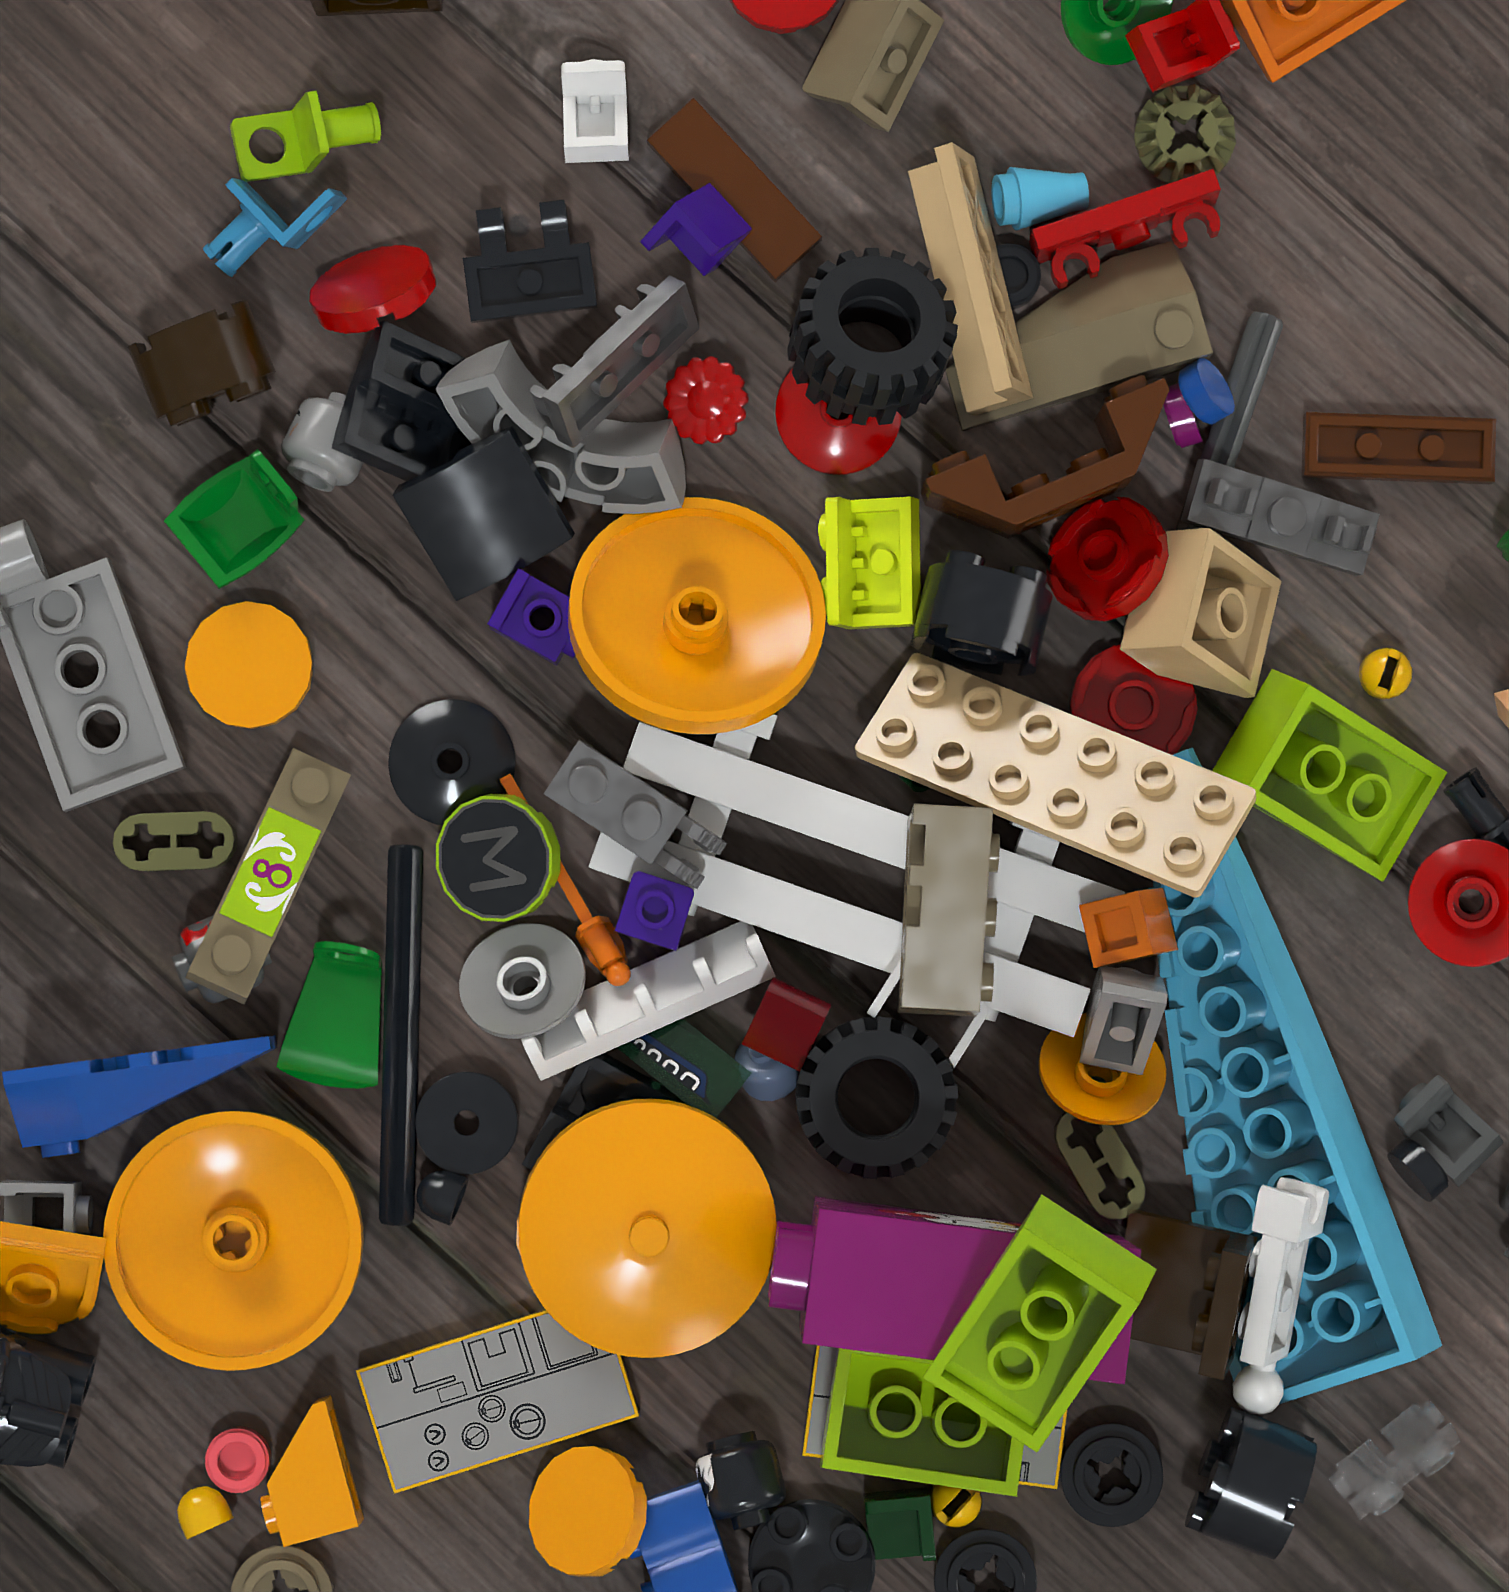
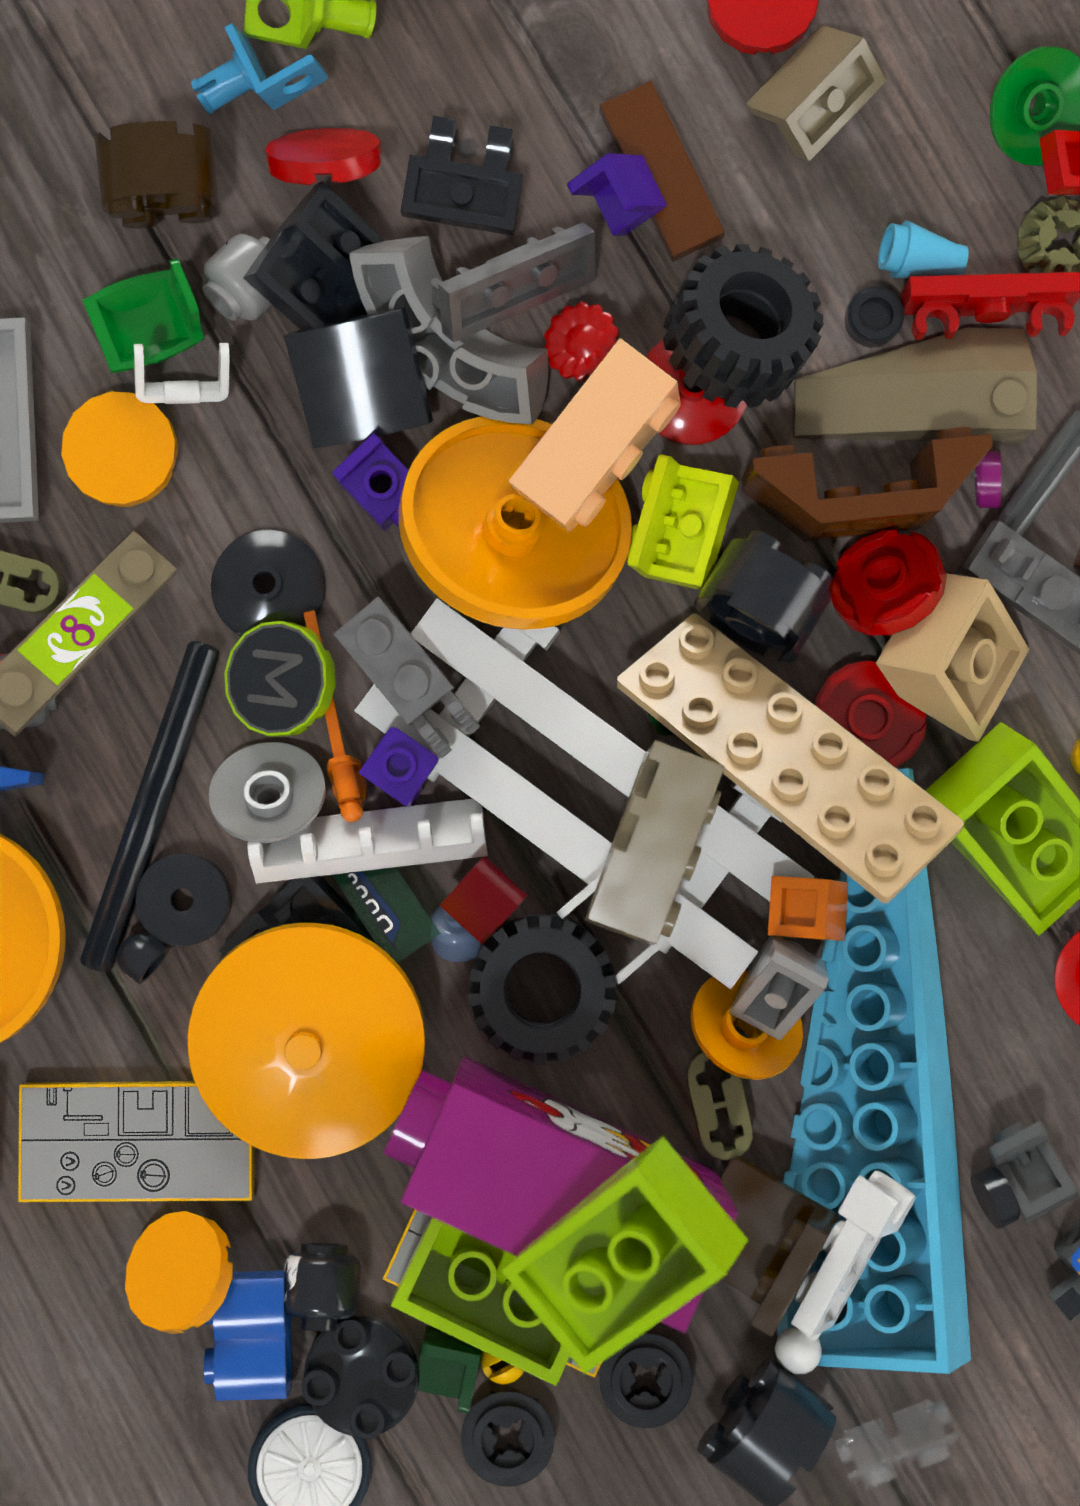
camera: 20 degrees right, 0 degrees up
(297, 582) = (182, 391): none -> white piece
(336, 1019) = (99, 776): green piece -> none
(595, 111) = (563, 63): white bracket -> none
(758, 505) = (598, 437): none -> light nougat wedge
(969, 266) = (844, 285): tan fence -> none
(1206, 391) = (1017, 463): blue tile -> none

